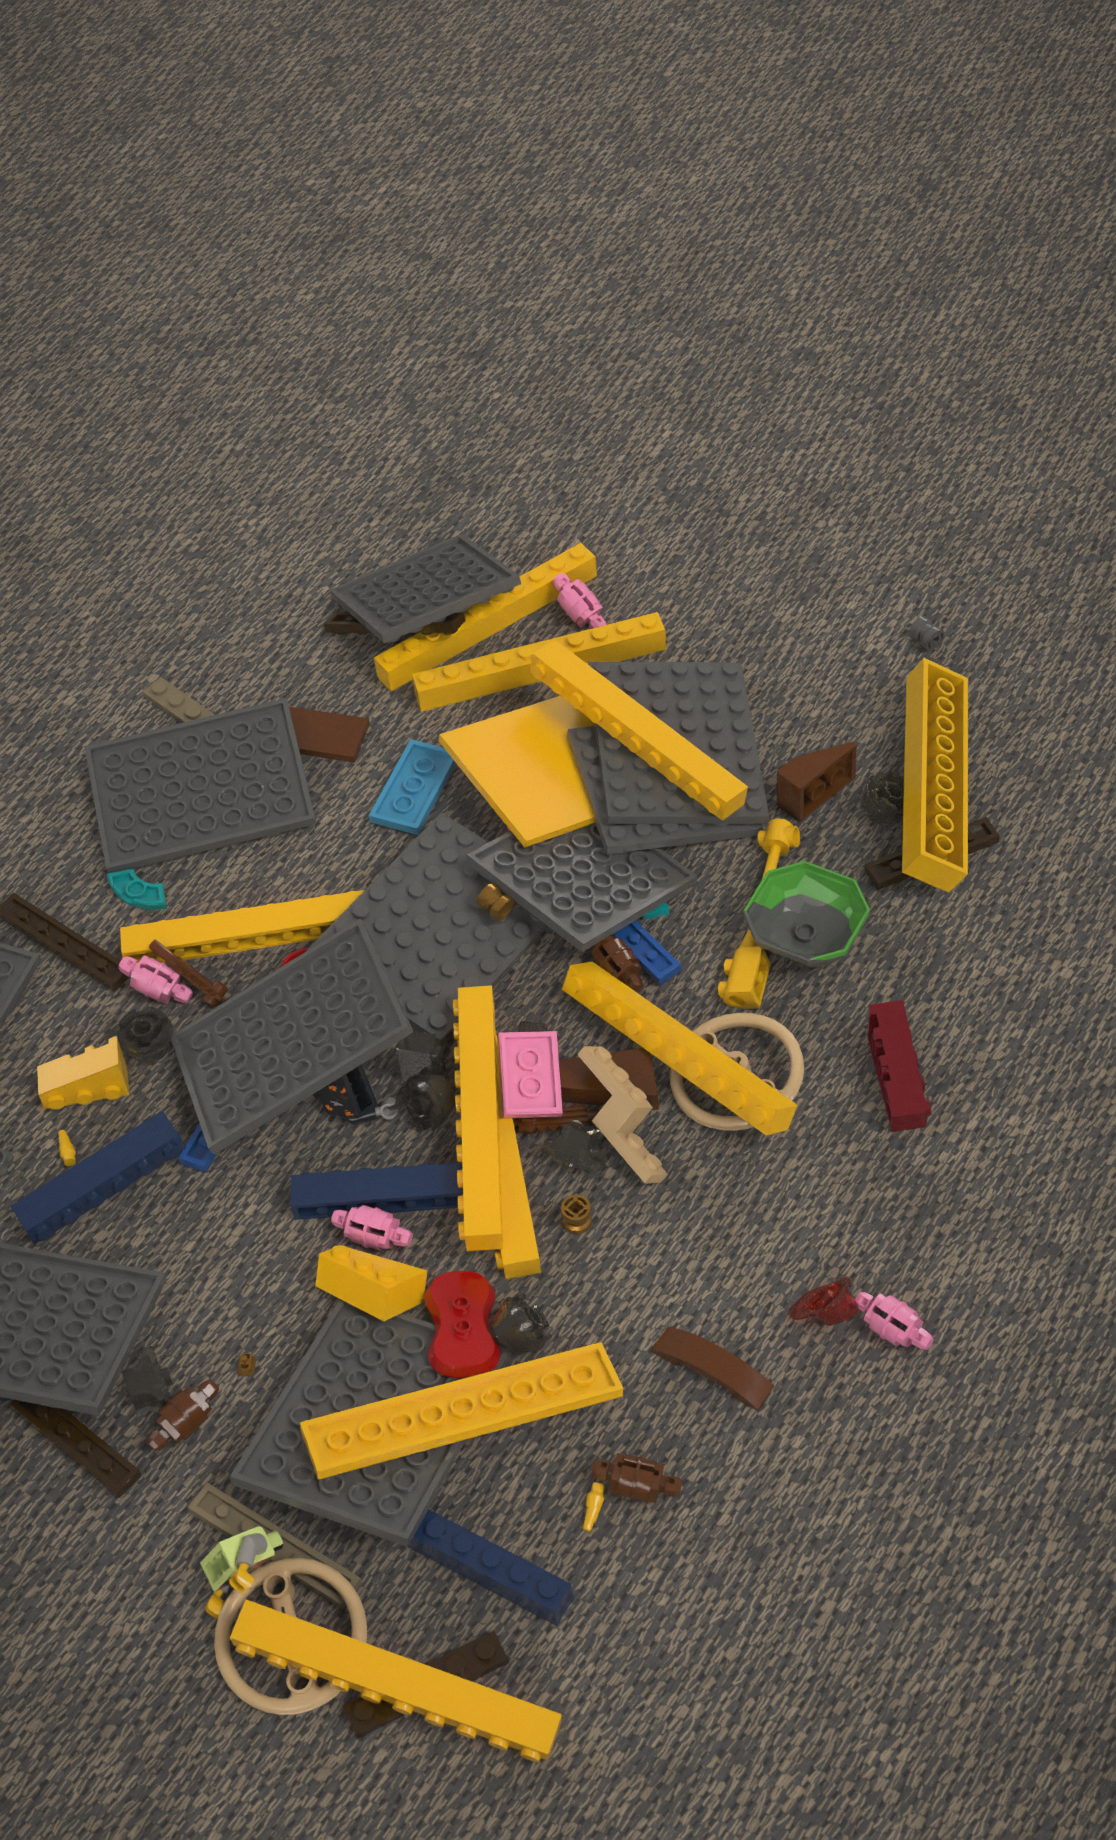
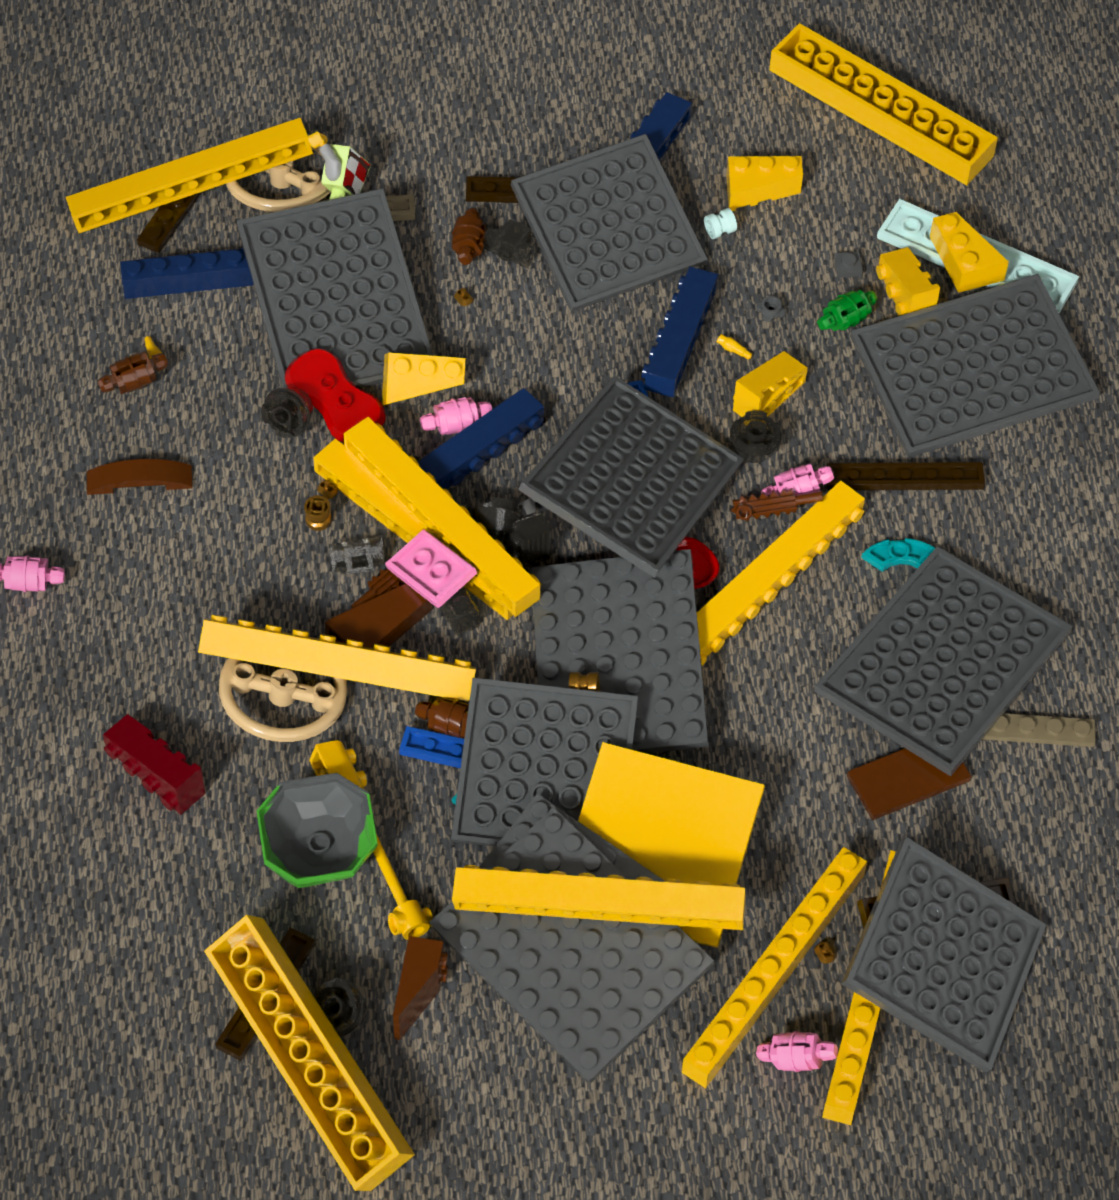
camera: 135 degrees right, 5 degrees up
(413, 787) = (763, 758): dark azure plate -> none
(460, 1410) = (273, 324): yellow plate -> none
(545, 1243) = (327, 489): none -> pearl gold rock
(622, 1114) = (339, 590): tan bracket -> none
(827, 1303) = (86, 554): clear red piece -> none

